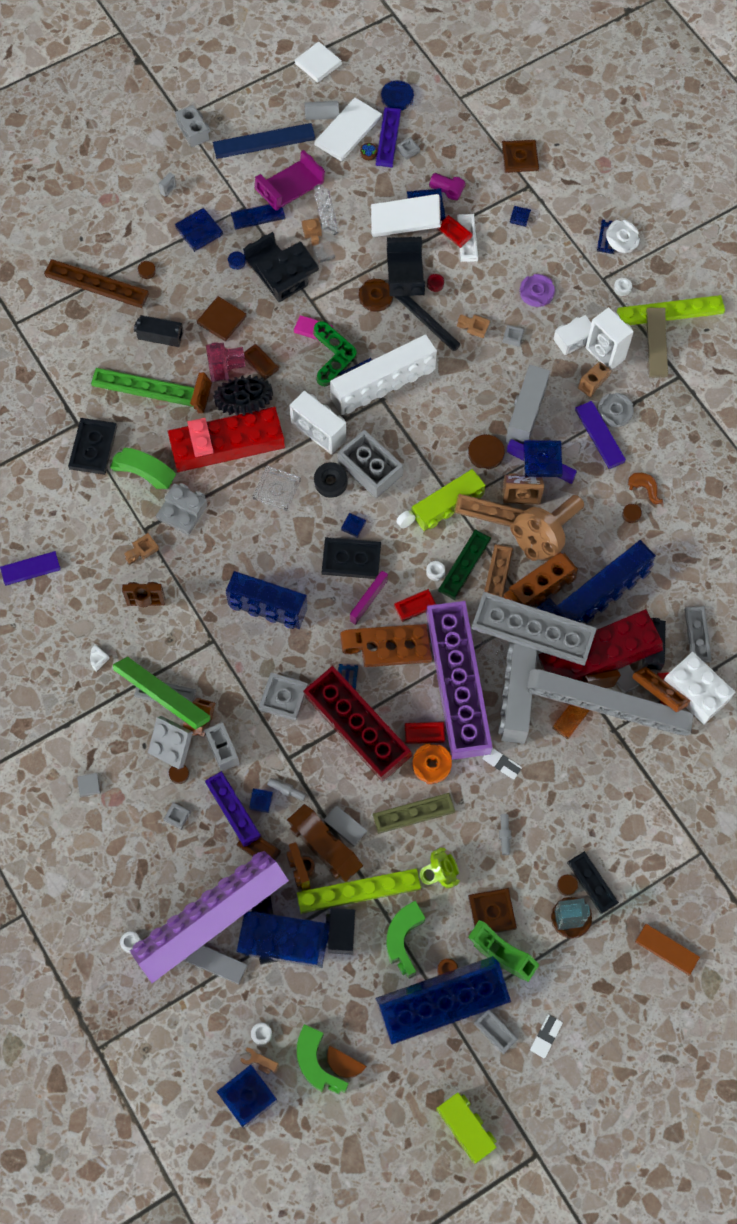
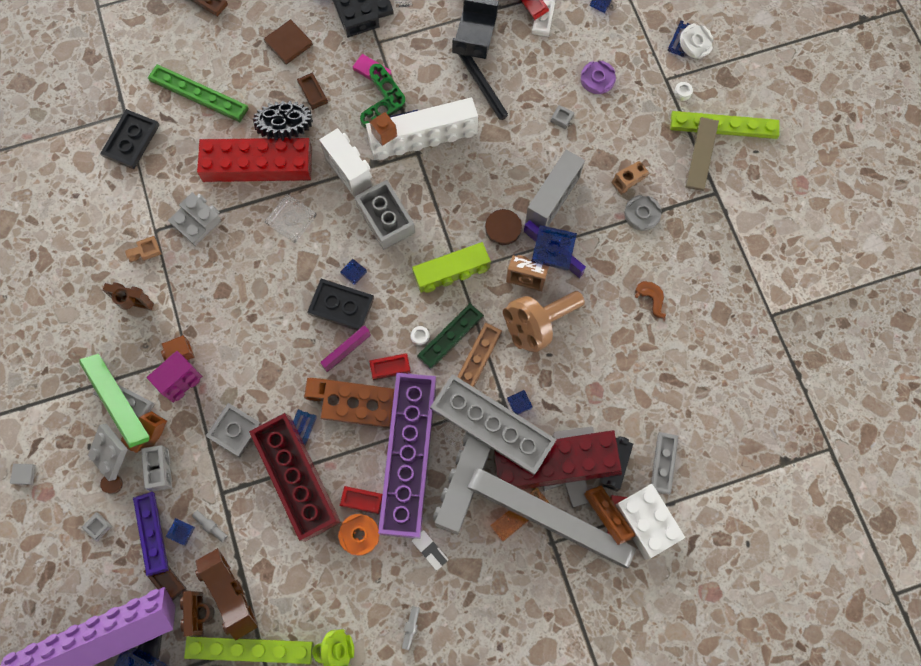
camera: 15 degrees right, 5 degrees up
(30, 568) = (36, 245): dark purple tile -> none
(98, 657) = (71, 348): white tile -> none
(128, 940) = (12, 644): white tile -> none
(145, 466) = (169, 170): bright green arch -> none
(159, 330) = (225, 41): black brick -> none
(200, 437) = (226, 152): coral plate -> none
(201, 392) = (245, 109): dark orange tile -> none
(205, 635) = (178, 344): none -> dark orange brick
(214, 659) = (174, 377): none -> magenta brick
(223, 360) = (272, 83): clear pink brick -> none
(266, 600) = (243, 329): clear blue brick -> none
(326, 470) = (340, 212): black tyre -> none
(345, 826) = (255, 578): light grey tile -> none
(351, 381) = (383, 128): none -> dark orange brick
(375, 295) = (439, 49): reddish brown tile -> none
(405, 519) = (404, 277): white tile -> none
(413, 813) = (326, 581): olive tile -> none
(435, 282) = (501, 49): dark red tile -> none
(476, 326) = (528, 100): medium nougat plate -> none
(486, 510) = (485, 287): medium nougat tile -> none
(544, 575) = (524, 365): dark orange brick -> none
(573, 335) = (622, 129): white brick -> none
(600, 435) = (620, 234): dark purple tile -> none
(603, 679) = (552, 490): reddish brown tile -> none
(607, 584) = (581, 393): clear blue brick -> none
(609, 338) = (654, 140): white brick -> none
(631, 513) = (630, 322): reddish brown tile -> none

